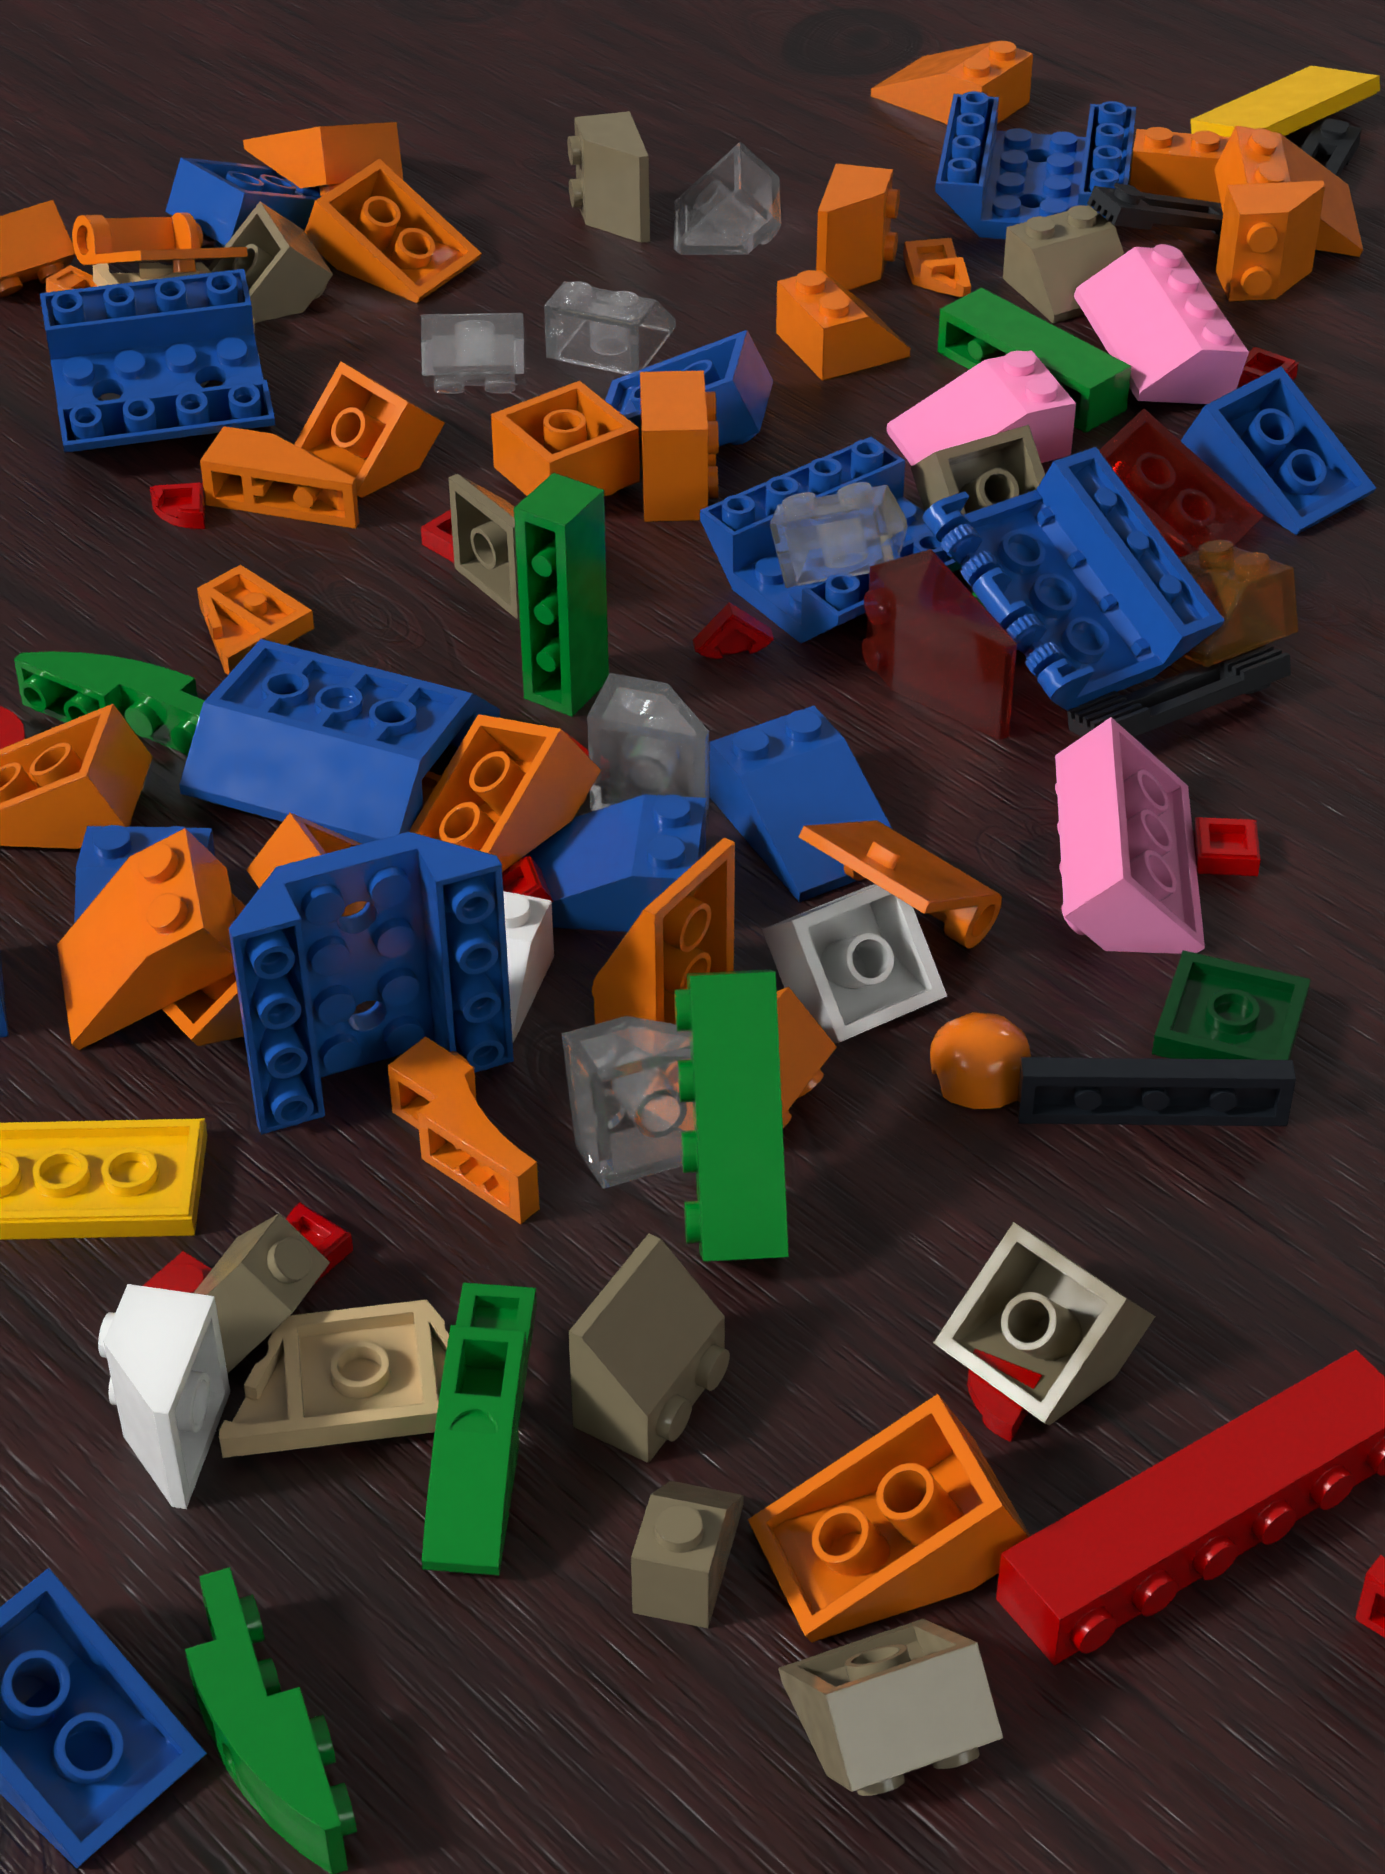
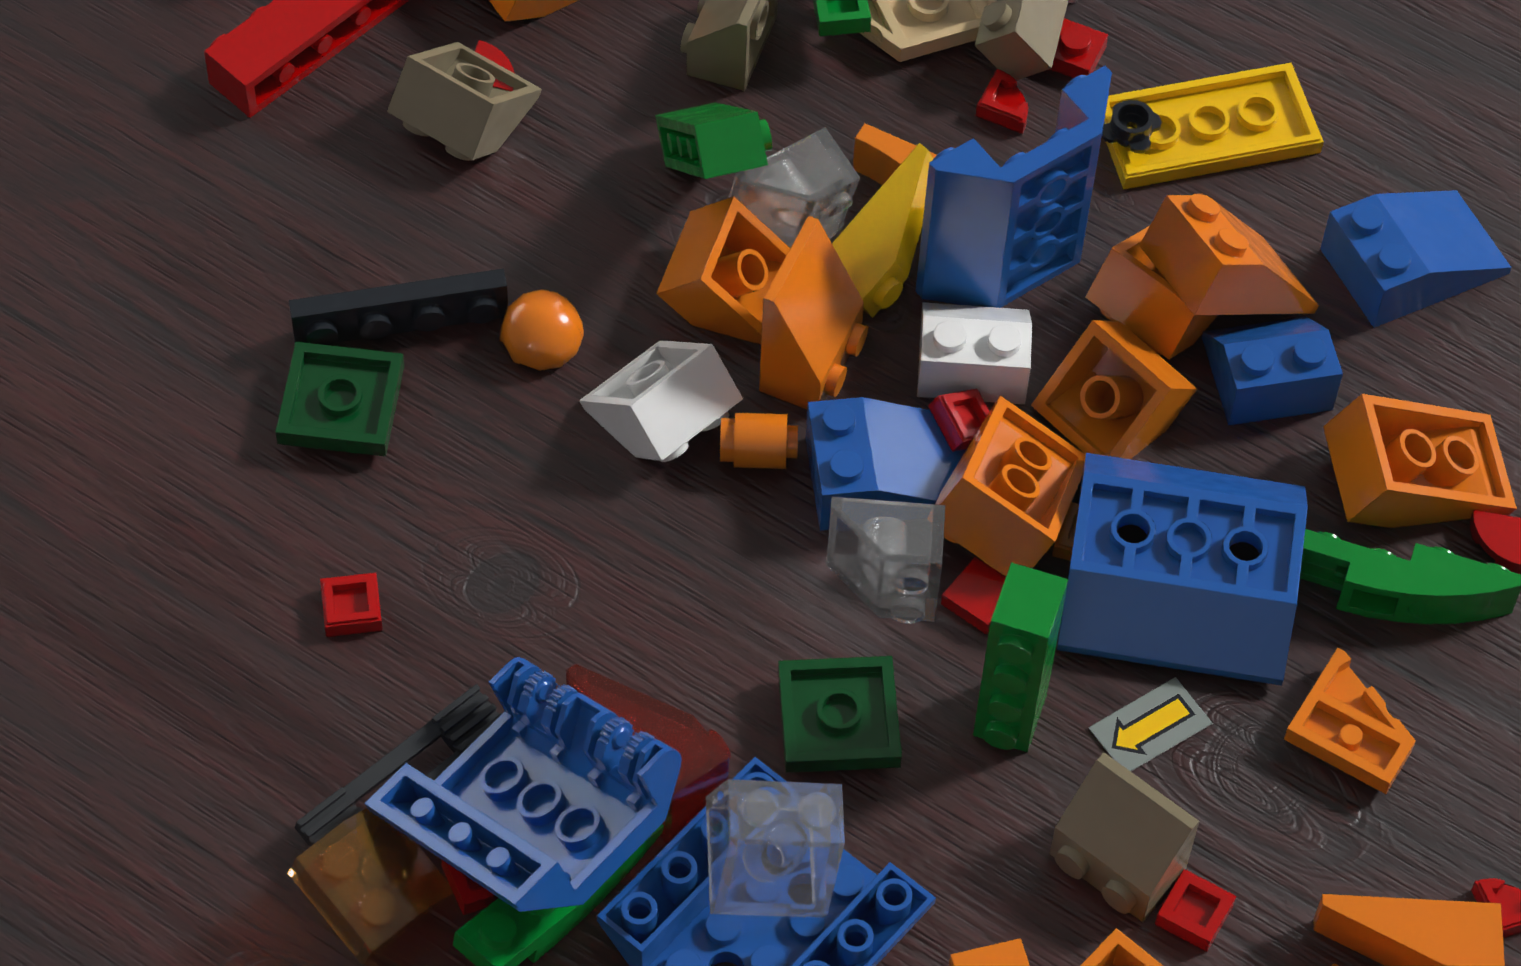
camera: 165 degrees right, 15 degrees up
(170, 1147) = (1135, 115): none -> black plate
(439, 660) = (1150, 725): none -> light grey sticker
(525, 1047) = (885, 234): none -> yellow slope
(732, 633) = (867, 783): red tile -> none
(739, 682) = (839, 714): none -> dark green plate
(762, 903) = (758, 440): none -> orange brick
(786, 778) = (744, 568): blue slope -> none
(911, 875) = (630, 433): orange door -> none
(1126, 846) = (440, 563): bright pink slope -> none

